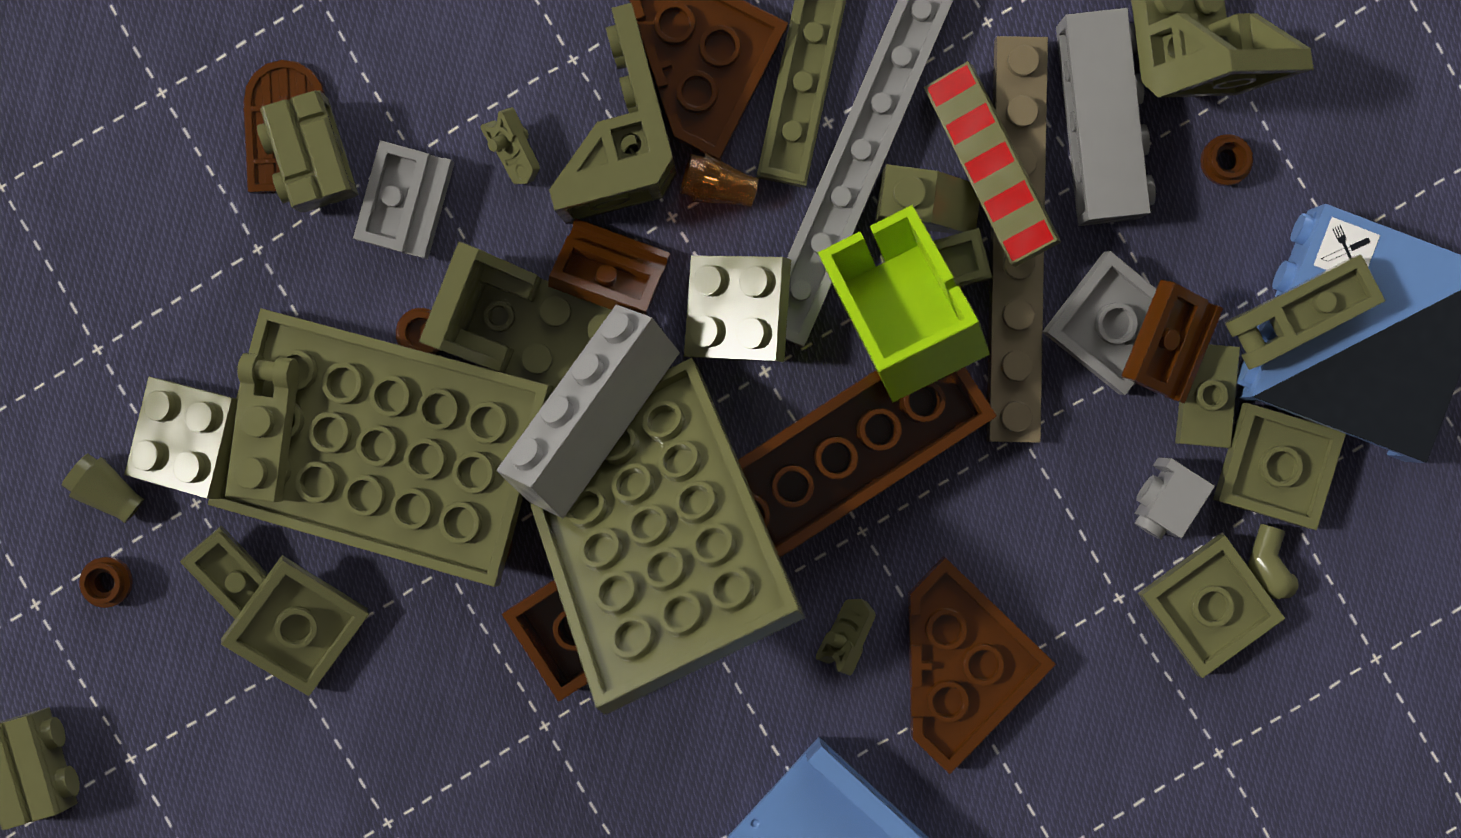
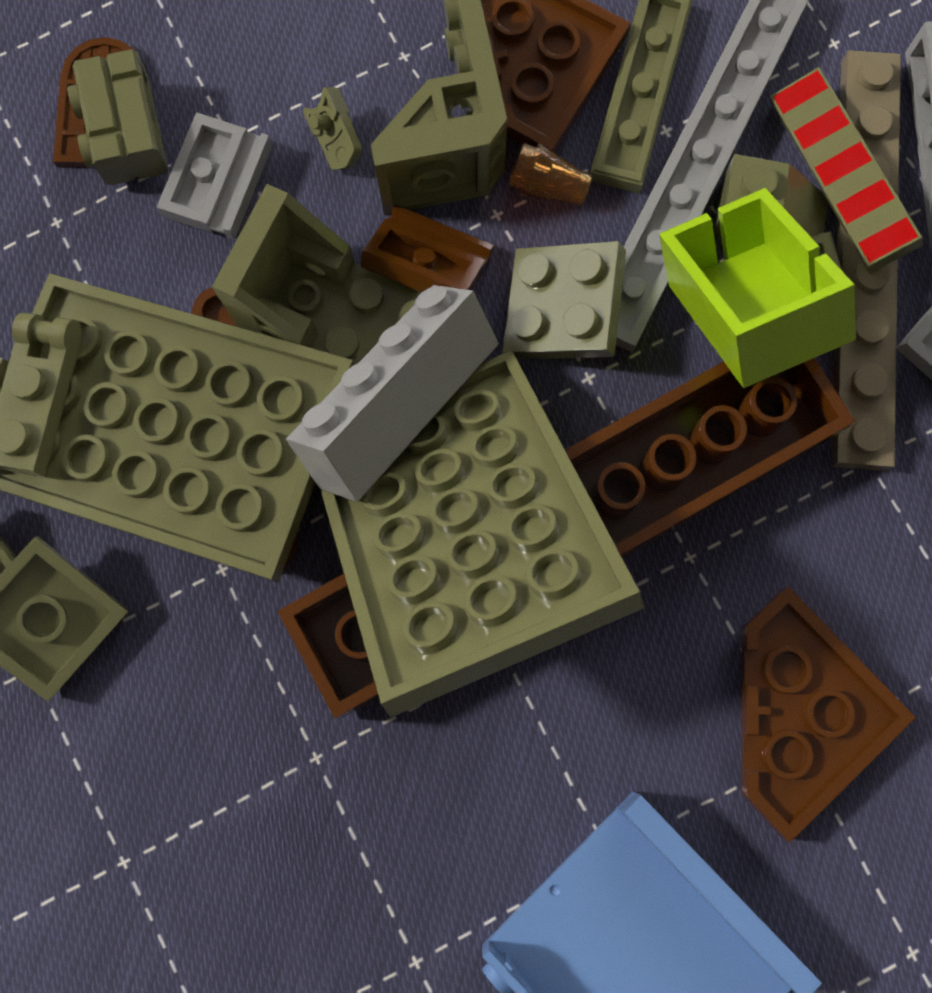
camera: 10 degrees right, 10 degrees down
(847, 636) = (672, 671): olive piece -> none

